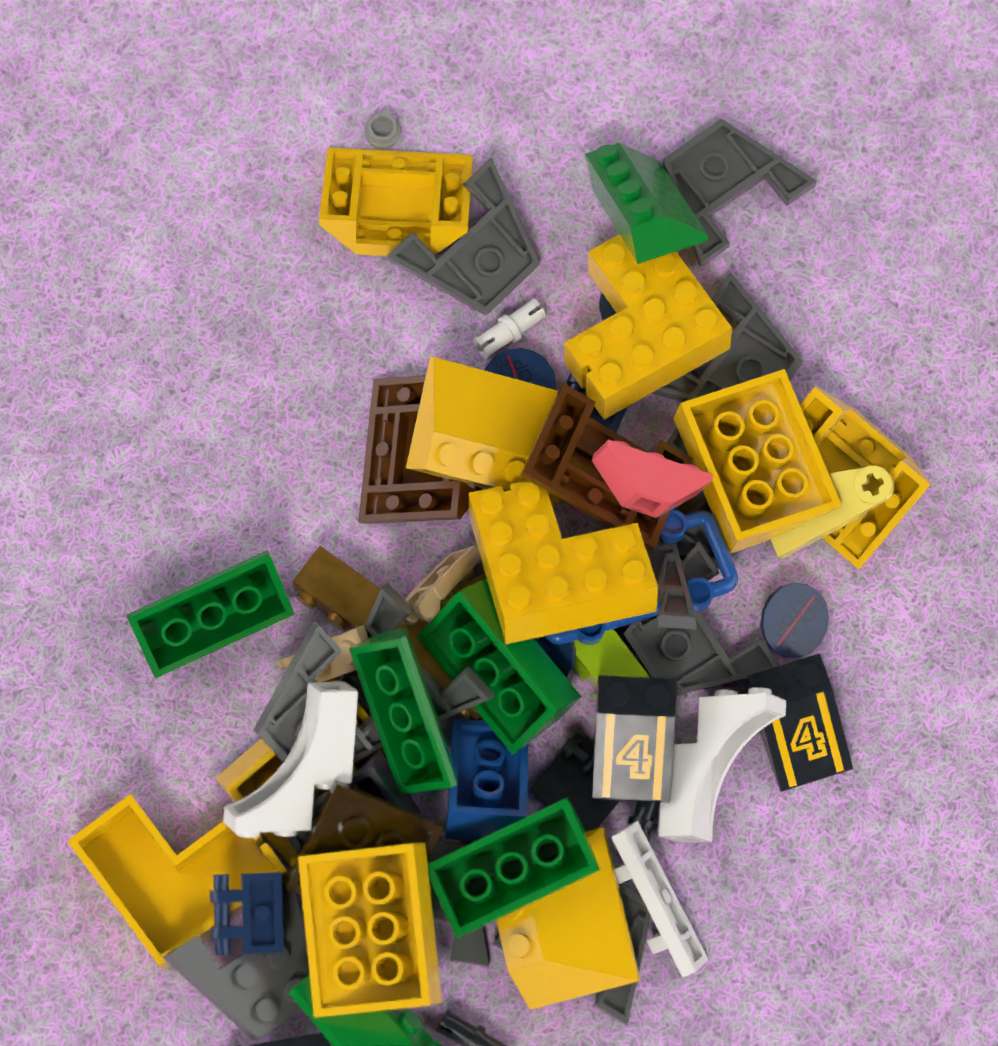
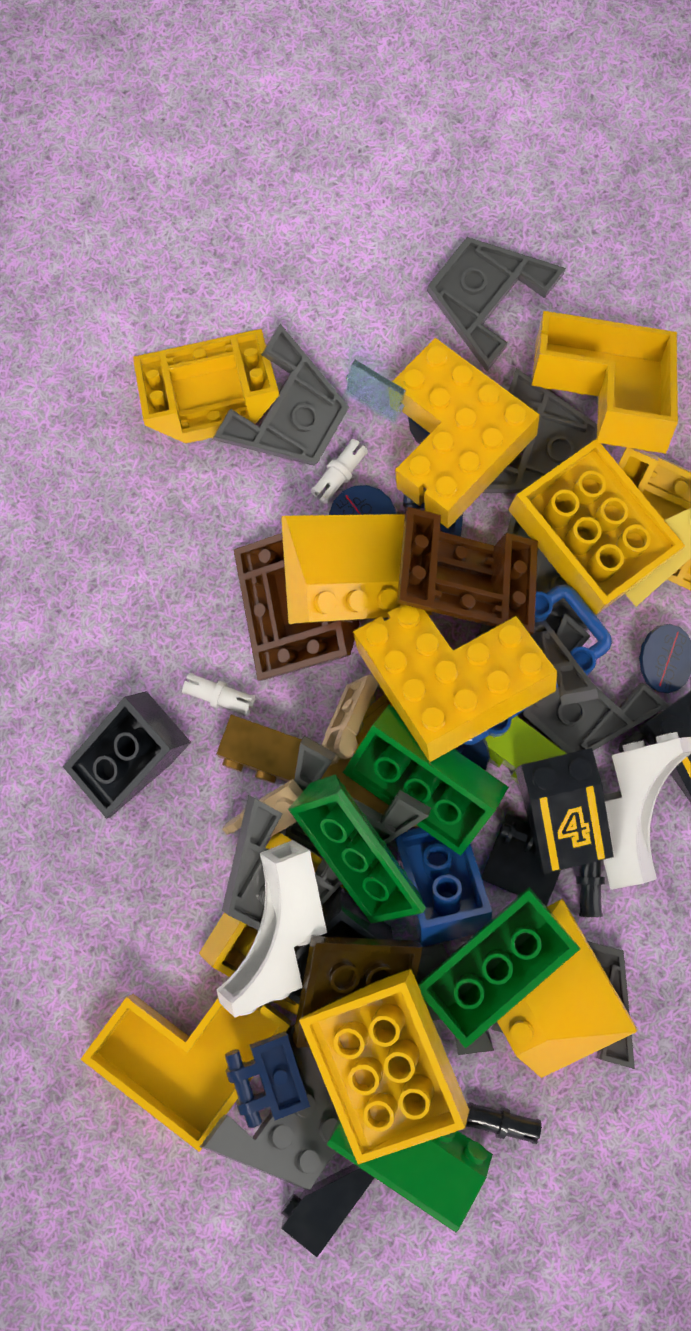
camera: 15 degrees left, 5 degrees up
(196, 547) = (126, 752): none -> black slope
(210, 614) = (150, 808): green slope -> none
(313, 524) = (218, 694): none -> white pin
(382, 131) = (176, 329): light grey plate -> none
(571, 255) = (375, 391): none -> clear light blue piece
(642, 202) = (425, 327): green slope -> none
(647, 480) = (509, 573): coral slope -> none
(673, 925) = (647, 968): white hinge -> none
(835, 297) = (623, 365): none -> yellow piece

